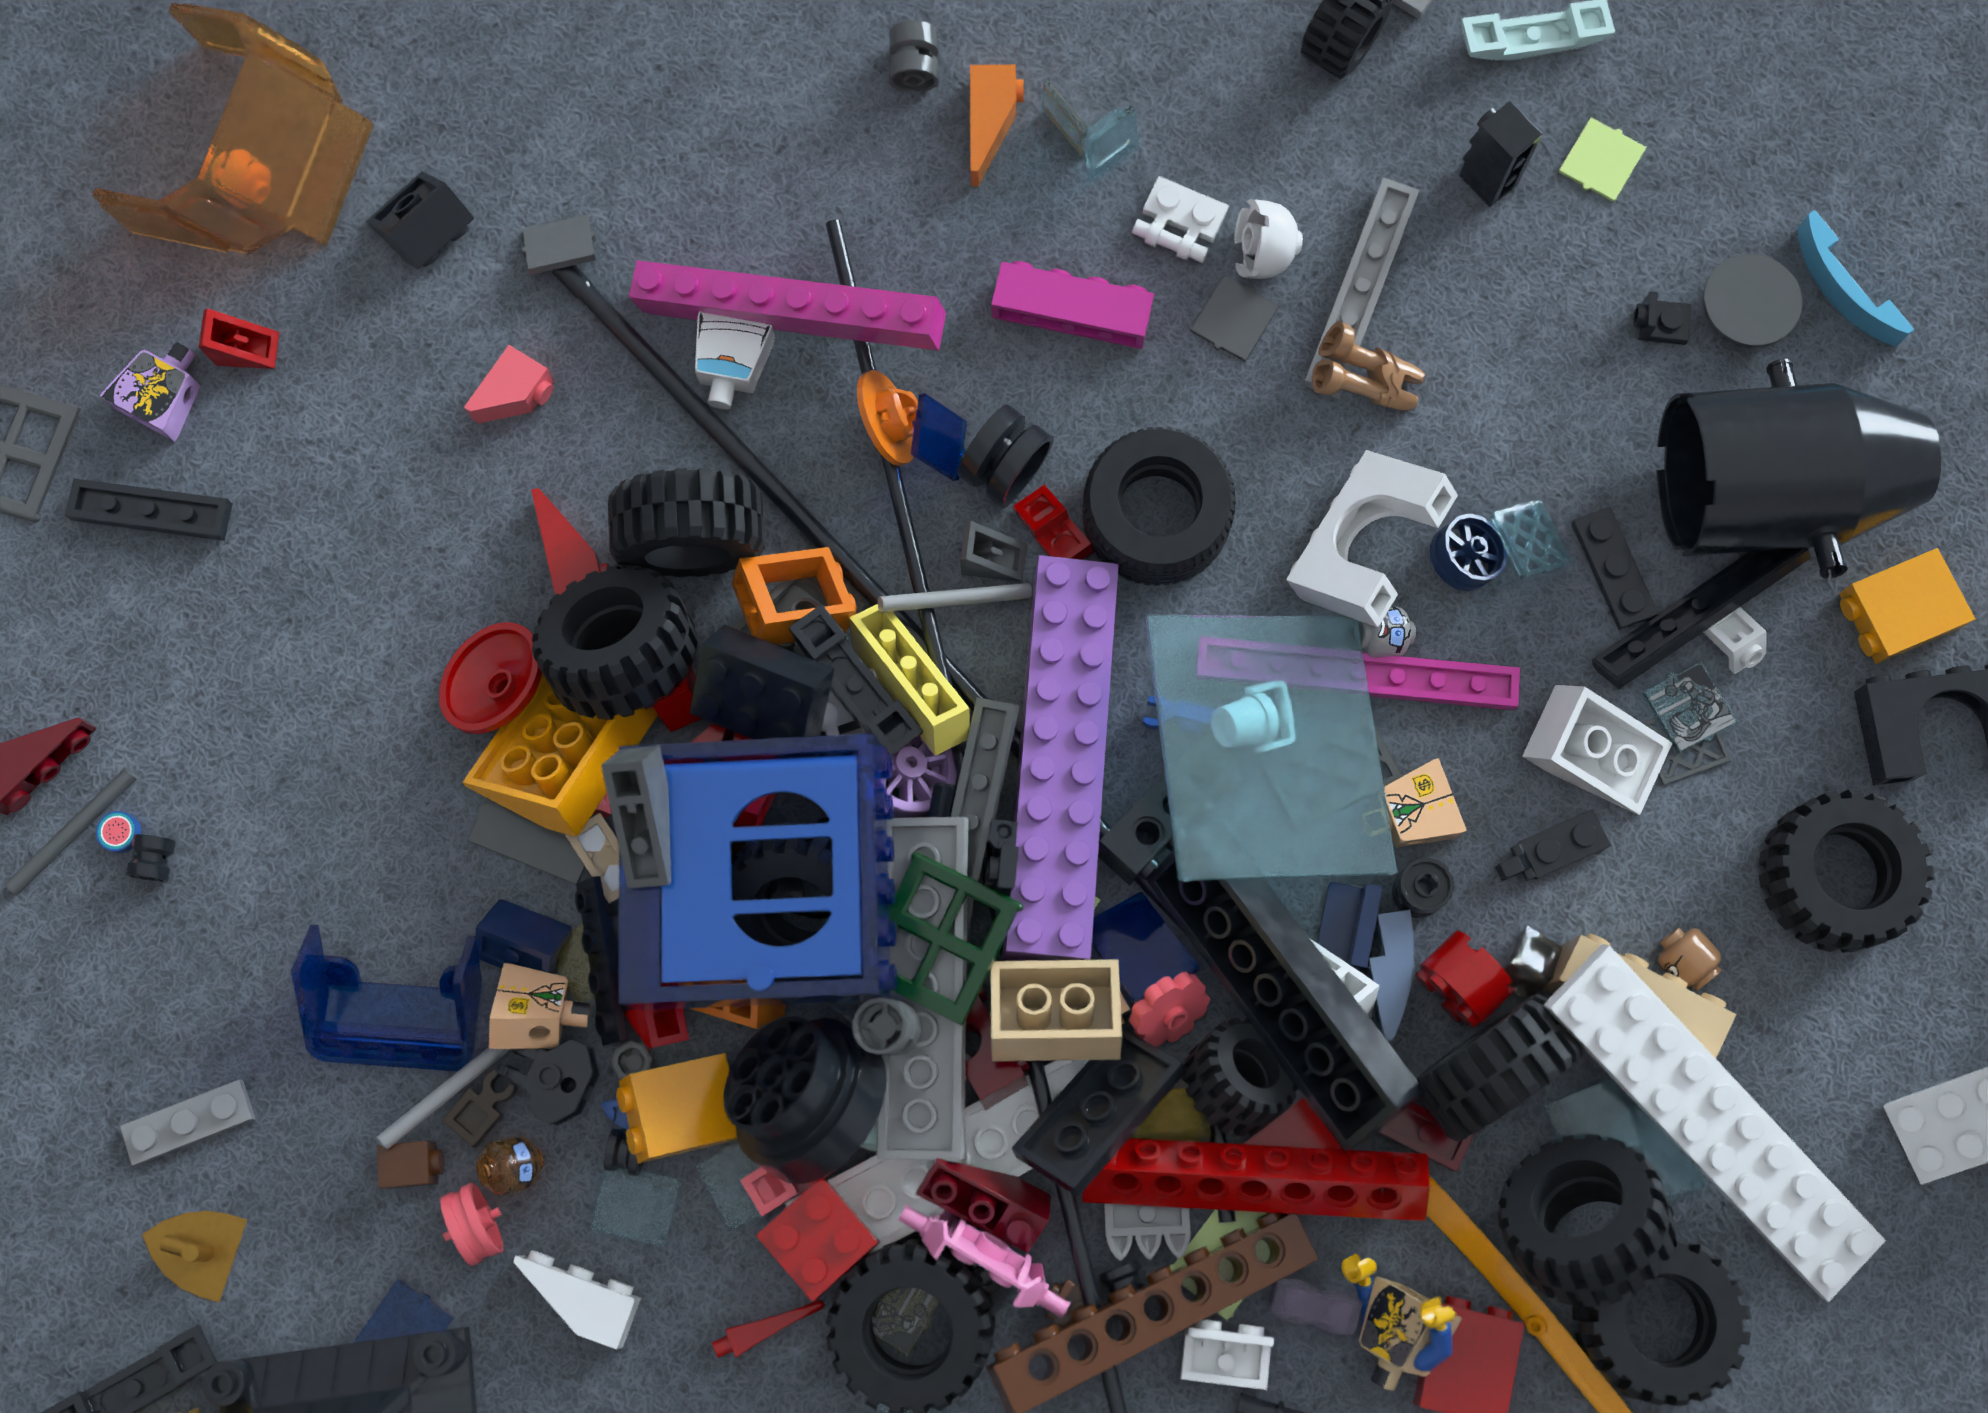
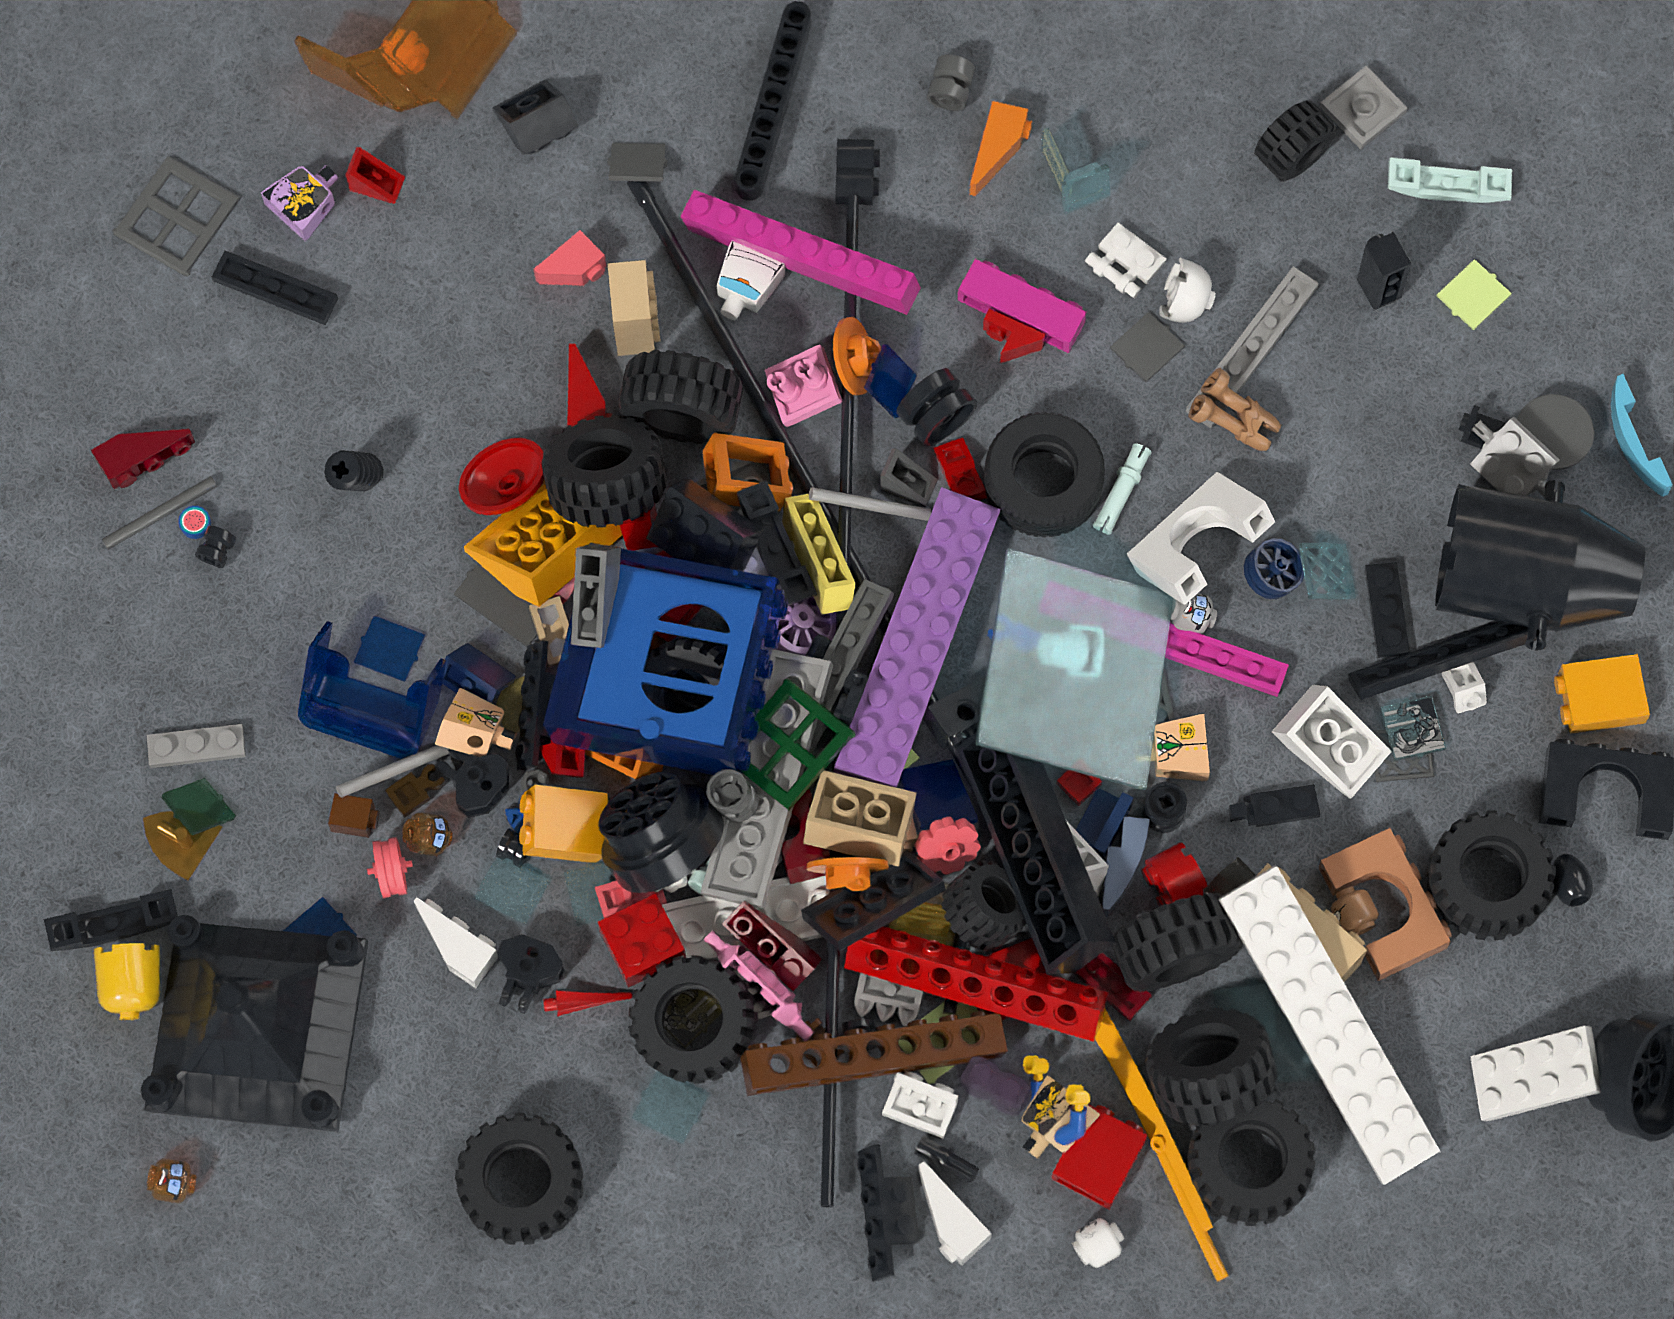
camera: 15 degrees right, 5 degrees down
(206, 1206) = (198, 806): none -> clear green piece
(300, 718) = (353, 471): none -> black piece
(403, 931) = (389, 648): none -> clear blue piece
(598, 424) = (633, 307): none -> tan brick
(681, 1315) = (528, 971): none -> black hinge
(700, 114) = (773, 87): none -> black beam
(827, 191) = (855, 170): none -> black brick
(833, 469) = (803, 385): none -> bright pink plate
(1059, 1088) = (848, 872): none -> orange piece
(1081, 343) = (1020, 337): none -> red slope
(1258, 483) = (1127, 477): none -> light aqua pin
(1305, 889) = (1078, 785): none -> red plate
(1716, 346) = (1513, 459): none -> light grey plate
(1778, 962) = (1384, 859): none -> nougat arch
(1949, 850) = (1572, 881): none -> black animal

